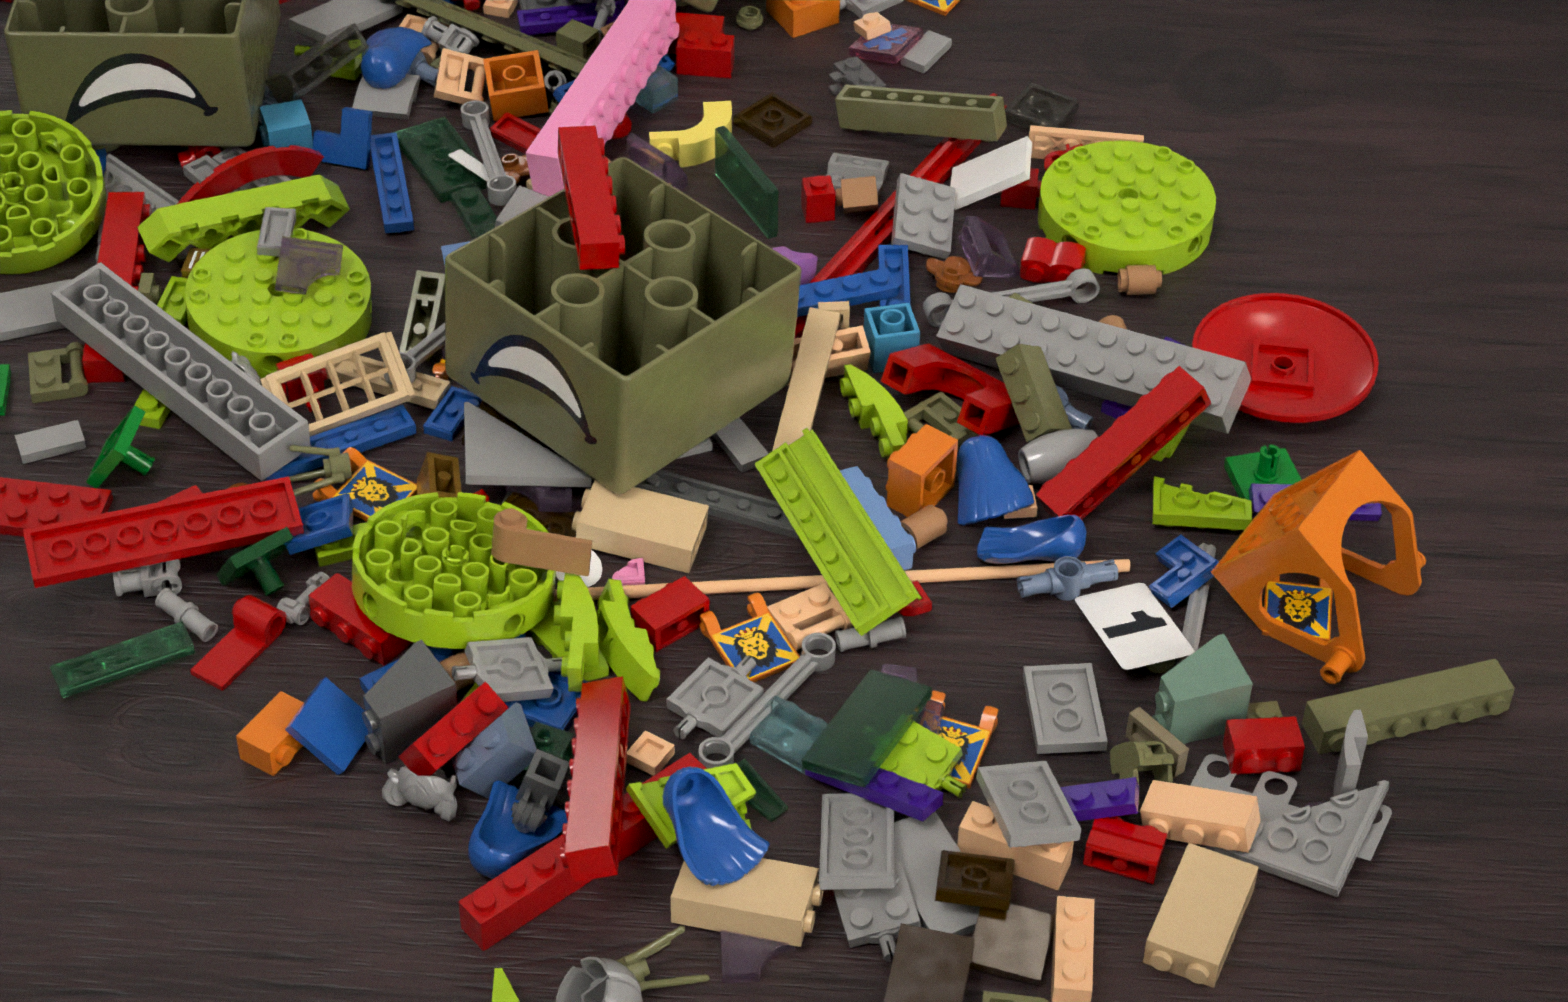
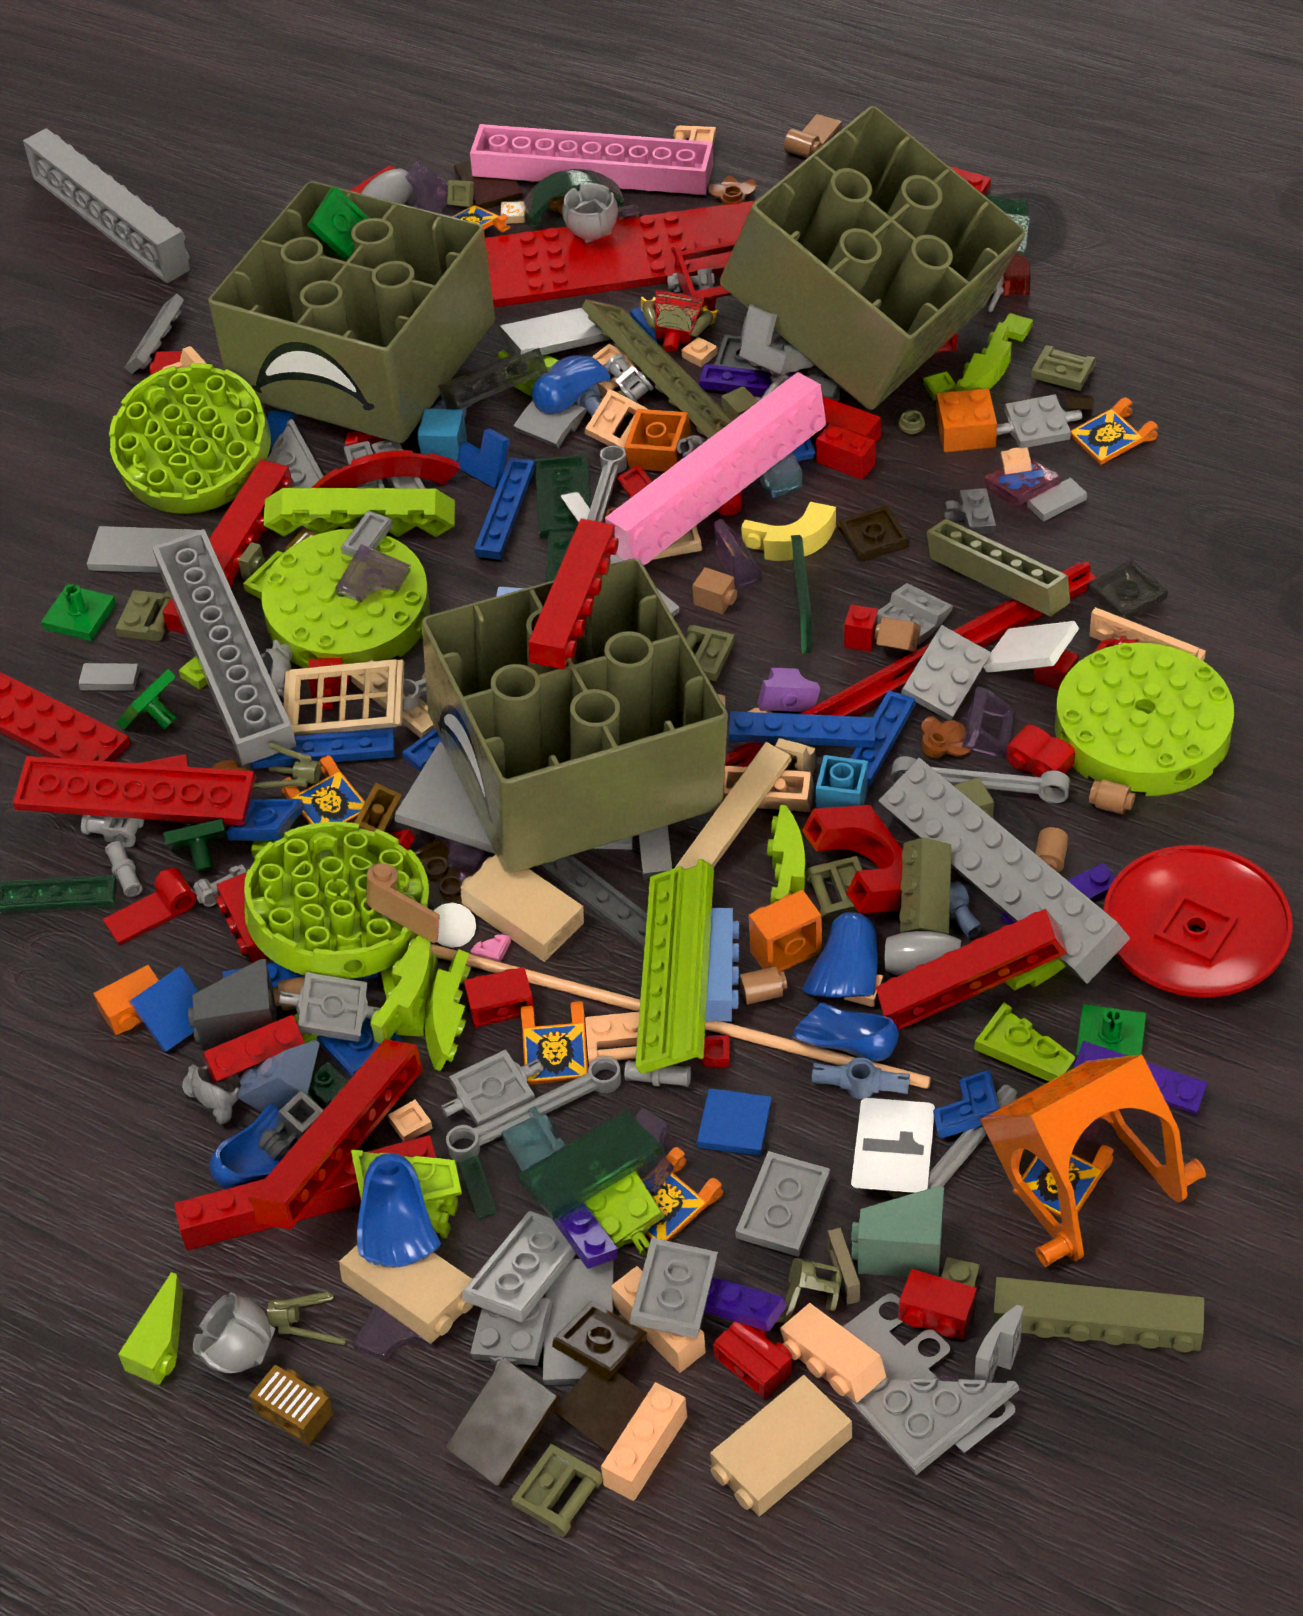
camera: 30 degrees right, 5 degrees up
(970, 654) = (734, 1122): none -> blue tile

